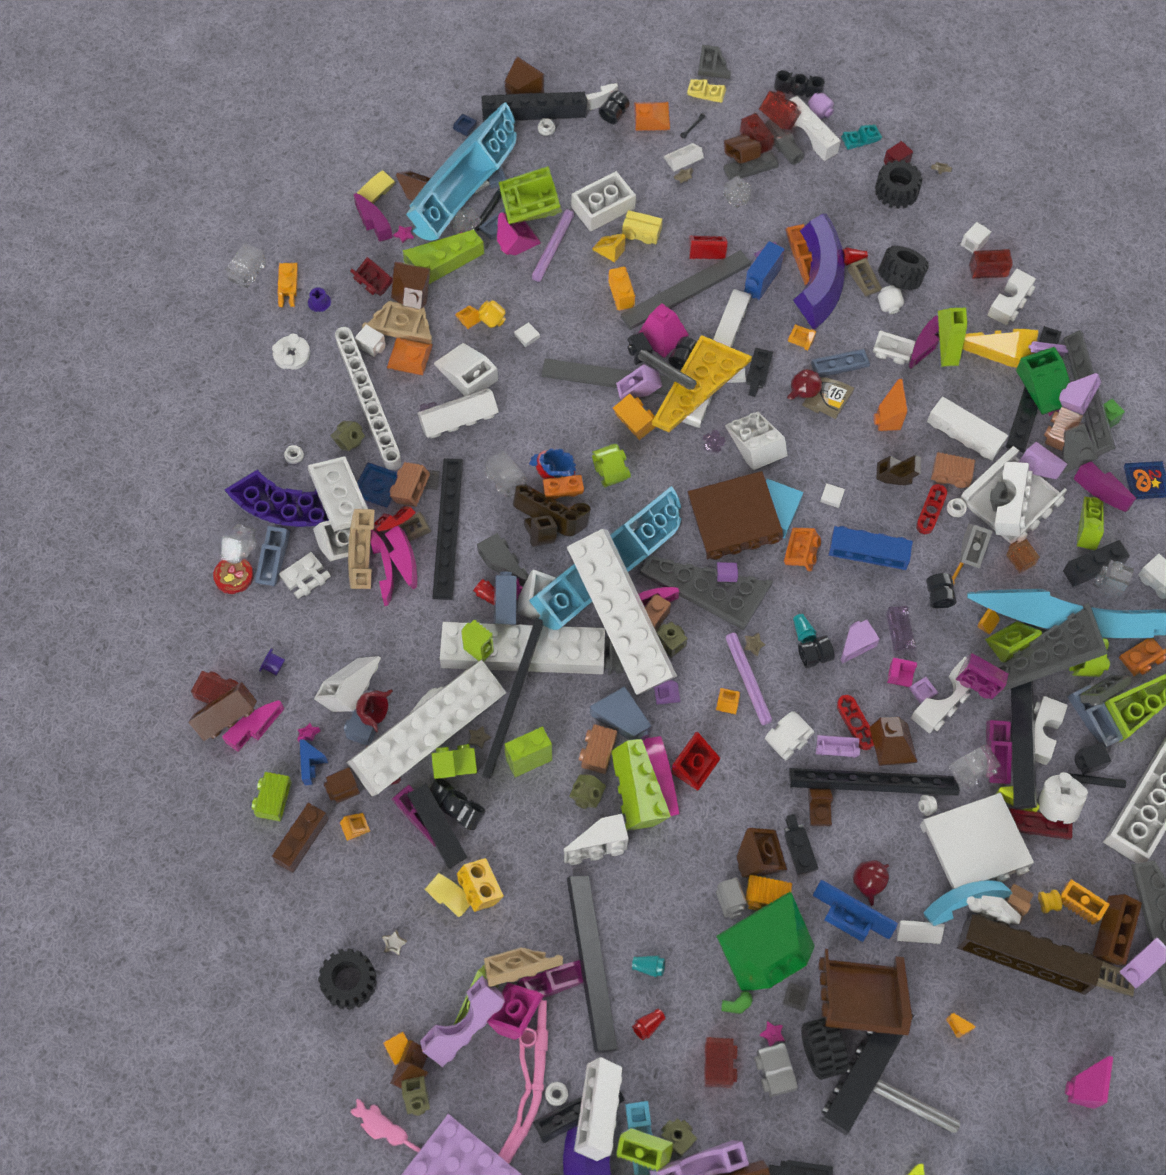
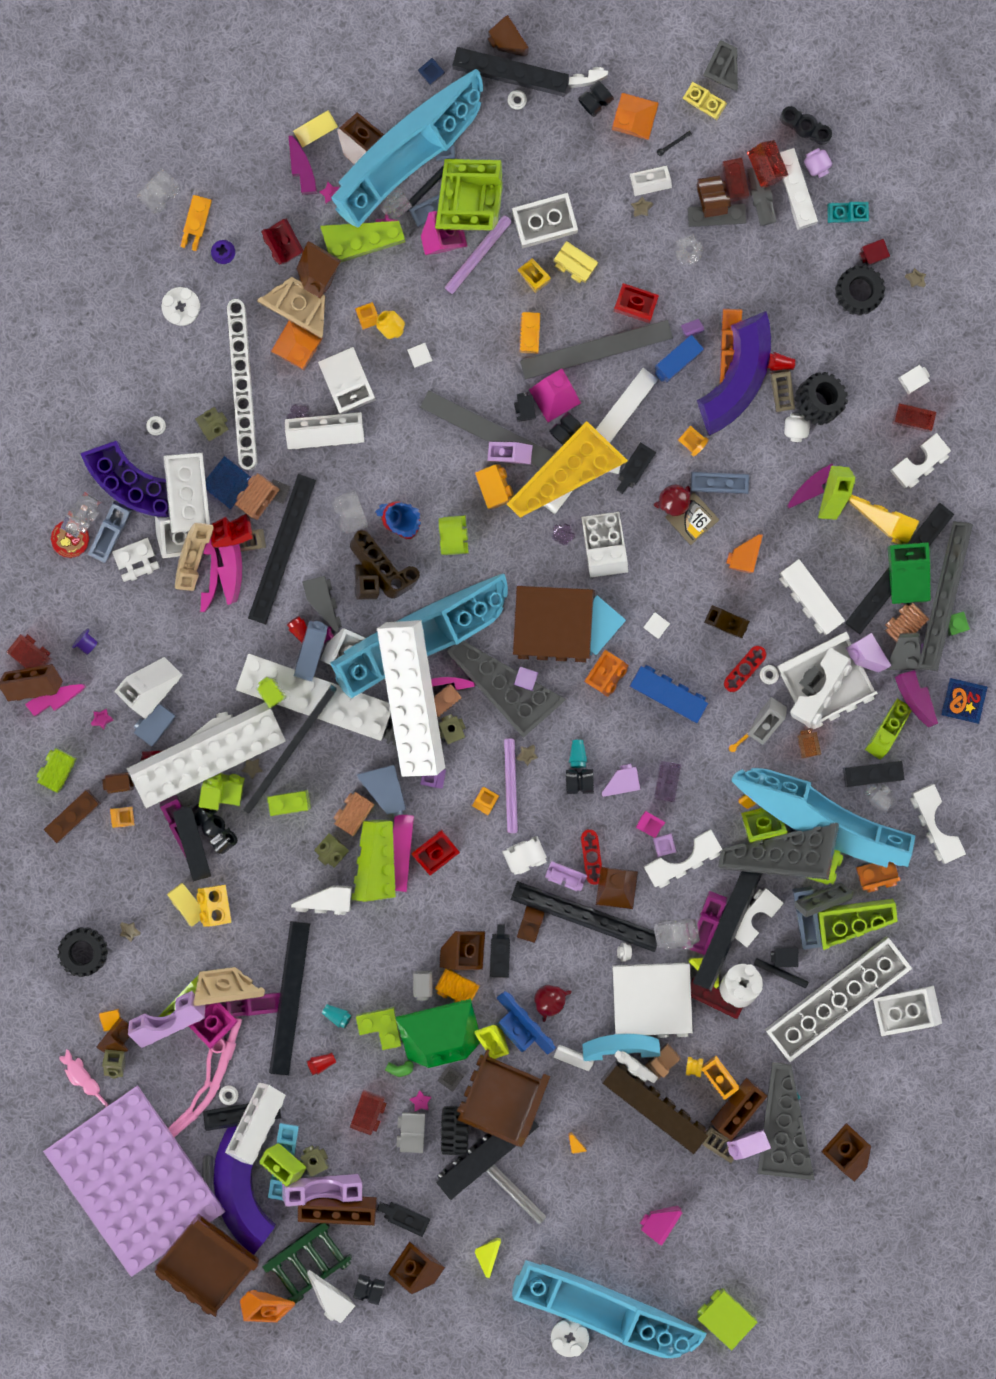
camera: 20 degrees right, 25 degrees up
(309, 757) = (97, 742): blue slope -> none
(370, 341) = (262, 319): white brick -> none
(376, 701) = (162, 729): dark red hair -> none
(563, 486) = (400, 546): orange bracket -> none
(667, 369) = (539, 451): dark grey axle -> none
(703, 955) = (383, 1022): none -> lime brick
(826, 937) = (493, 1040): none -> neon yellow slope
(893, 347) = (777, 484): white bracket -> none
(941, 590) = (717, 757): black wheel -> none
(953, 470) = (781, 636): nougat brick -> none
(982, 677) = (715, 857): magenta slope -> none
(1040, 346) = (930, 537): lavender axle -> none
(1080, 393) = (930, 602): lavender slope -> none

